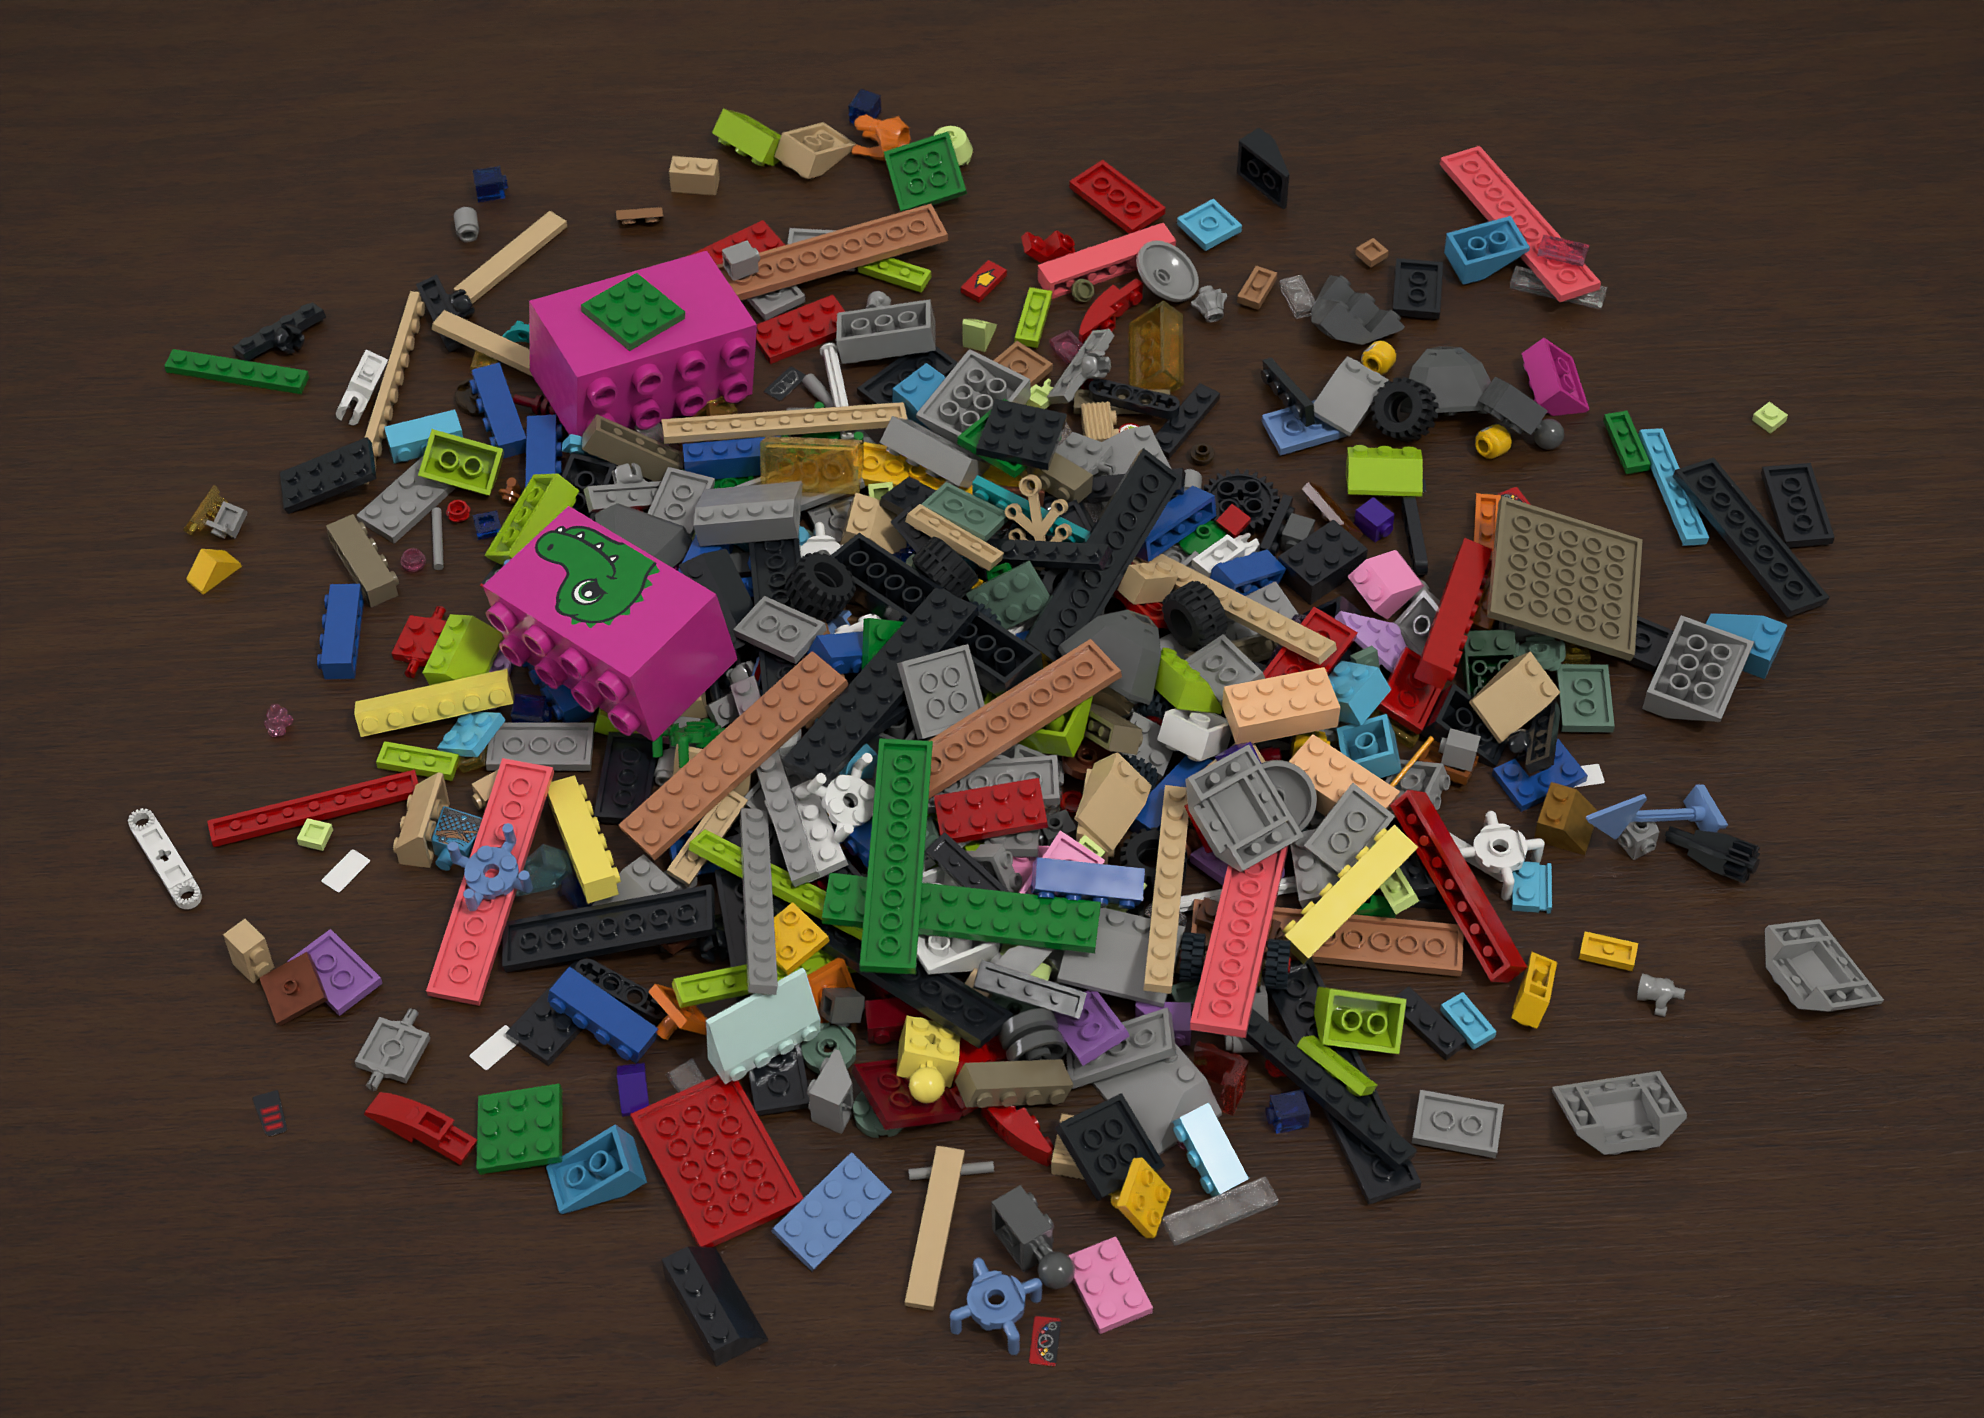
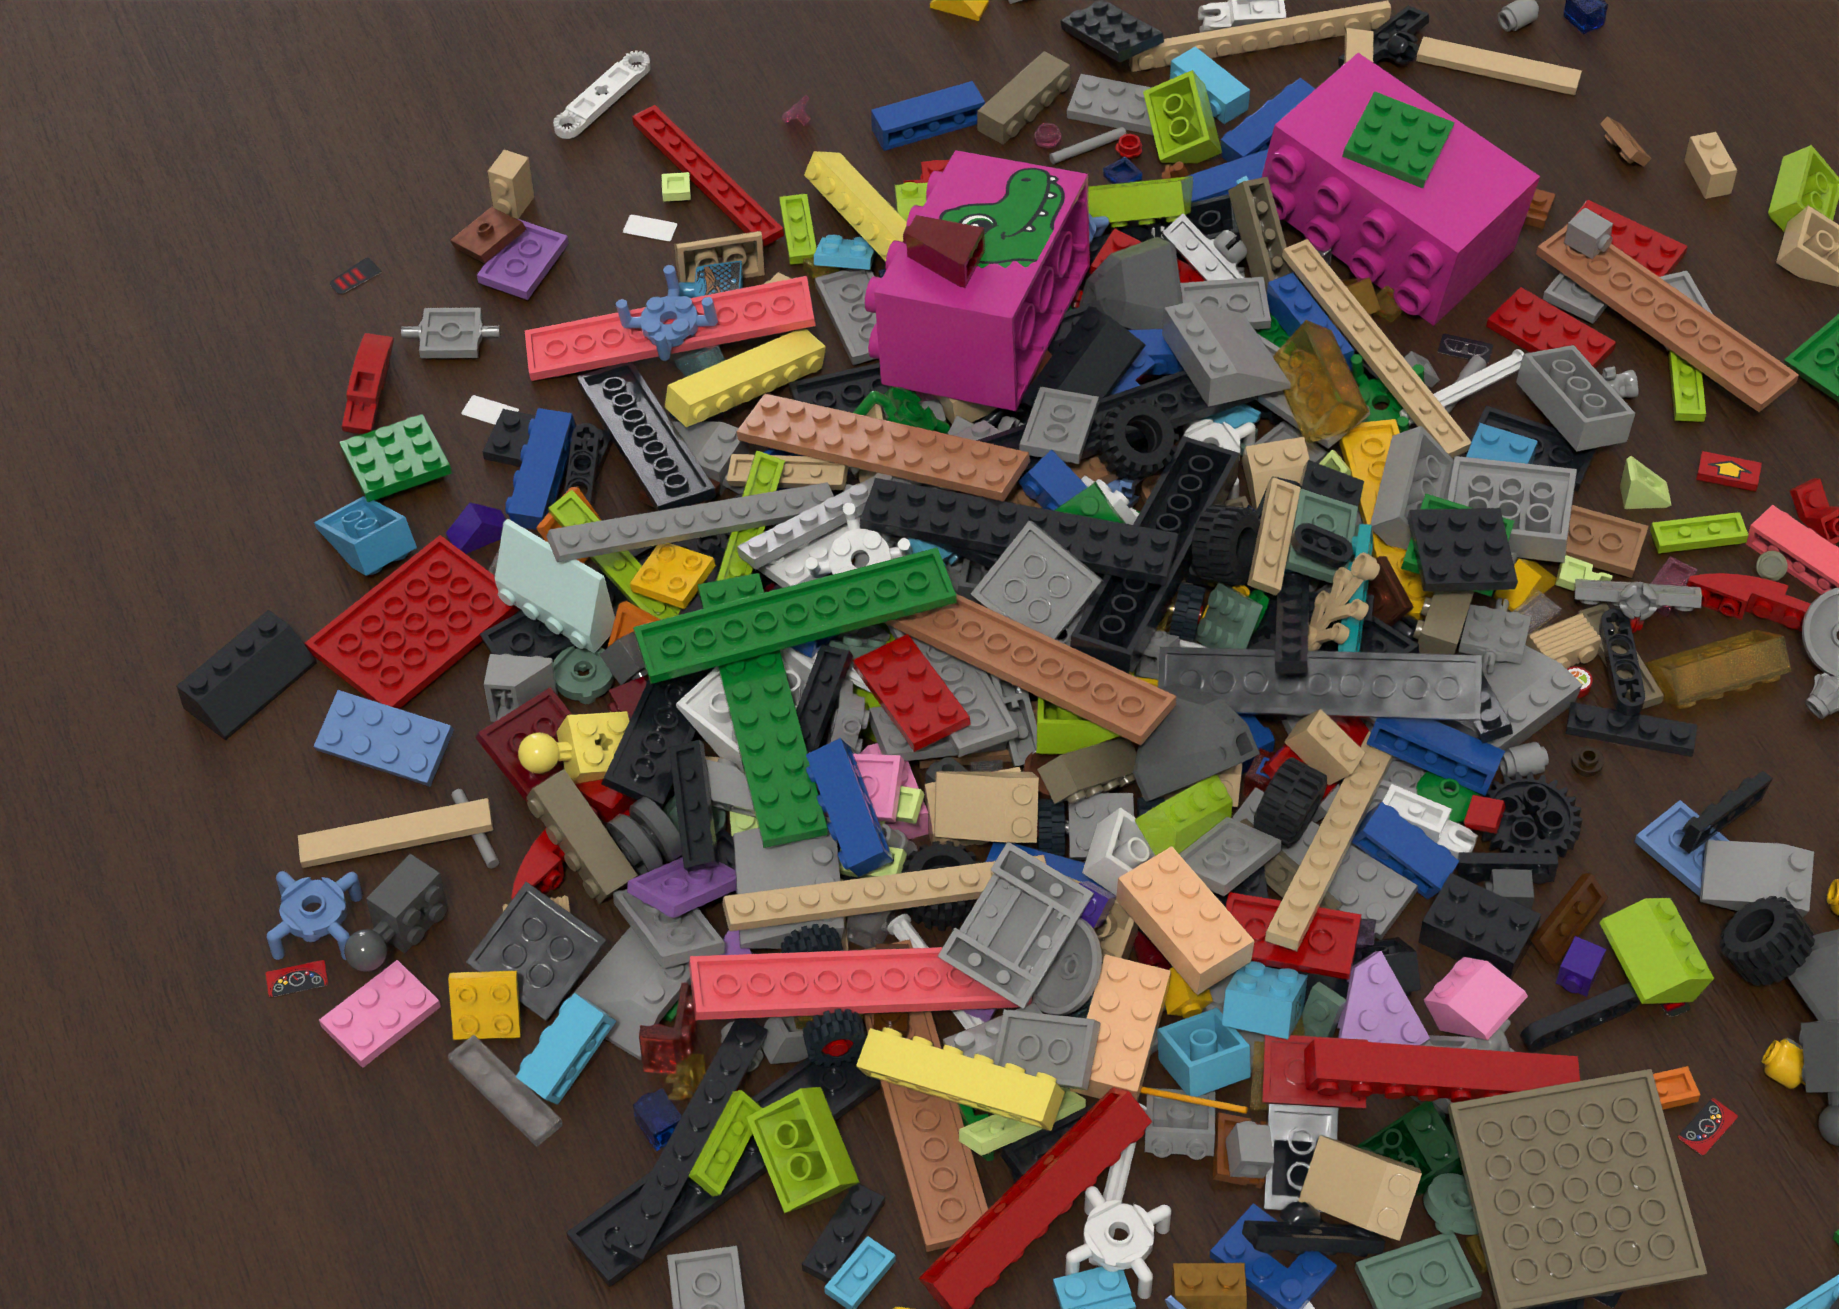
camera: 70 degrees right, 0 degrees up
(615, 613) = (945, 247): none -> dark red slope
(982, 510) = (1321, 544): none -> black plate
(1263, 1078) = (687, 1077): none -> clear yellow plate

